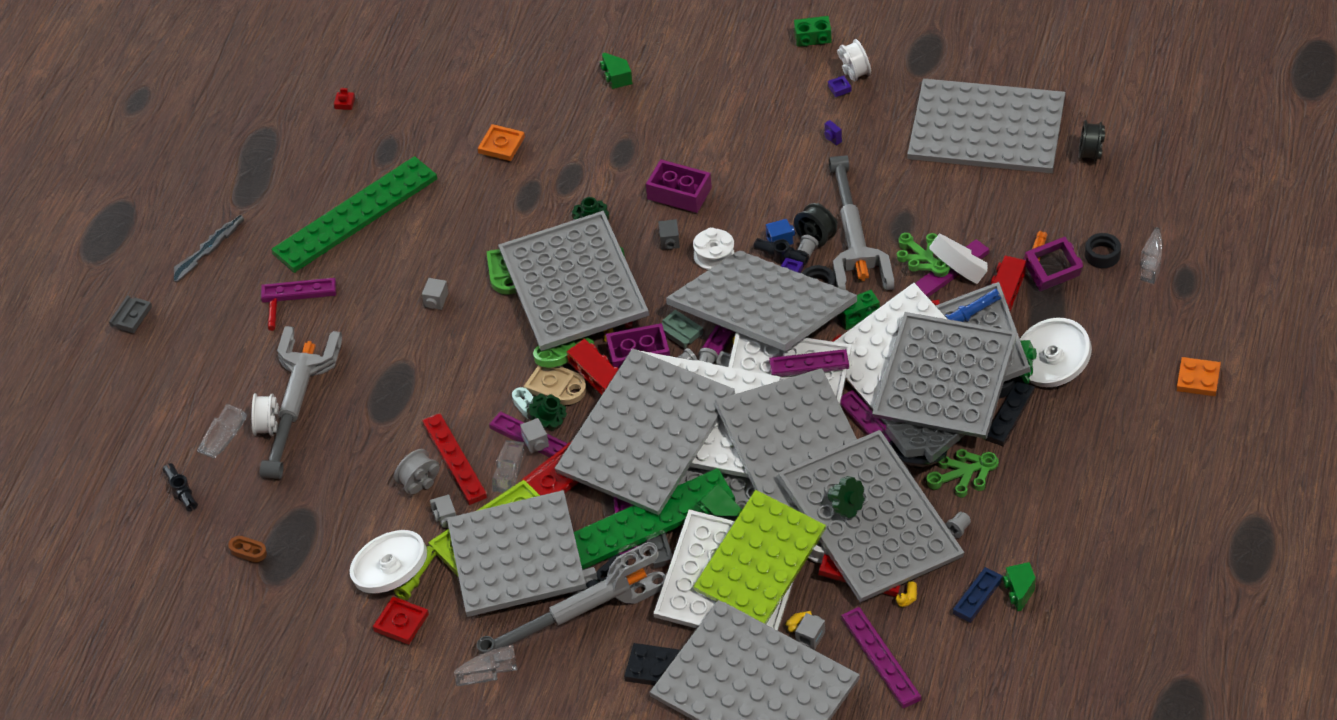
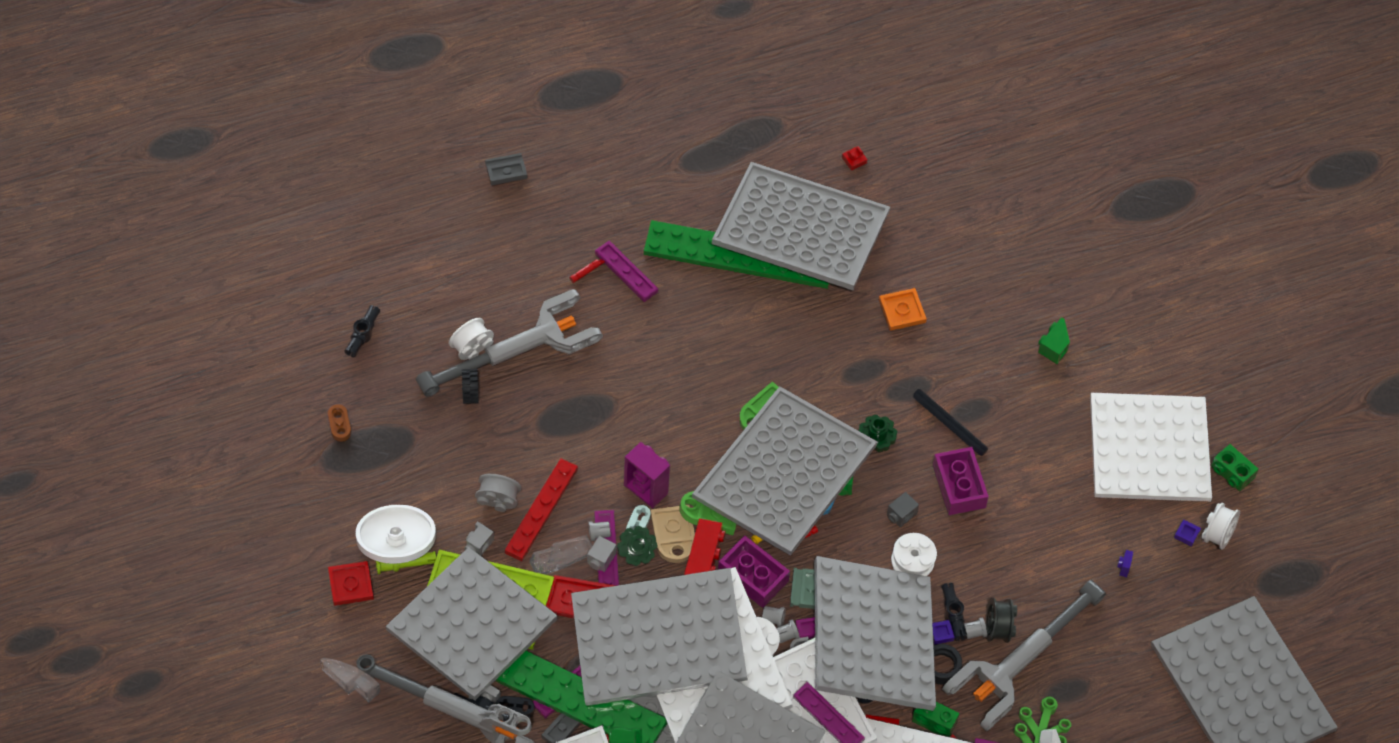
camera: 45 degrees right, 10 degrees up
(206, 248) = (617, 172): flat silver sword -> none
(222, 431) = (438, 320): clear slope -> none
(304, 439) = (470, 386): none -> black tyre
(372, 159) = (801, 225): none -> light grey plate
(435, 293) = (697, 375): light grey brick -> none
(496, 365) = (646, 474): none -> magenta brick
(511, 427) = (598, 529): none -> light grey bush
(616, 169) = (950, 422): none -> black axle
(750, 69) = (1150, 447): none -> white plate
(780, 230) = (974, 597): blue brick -> none

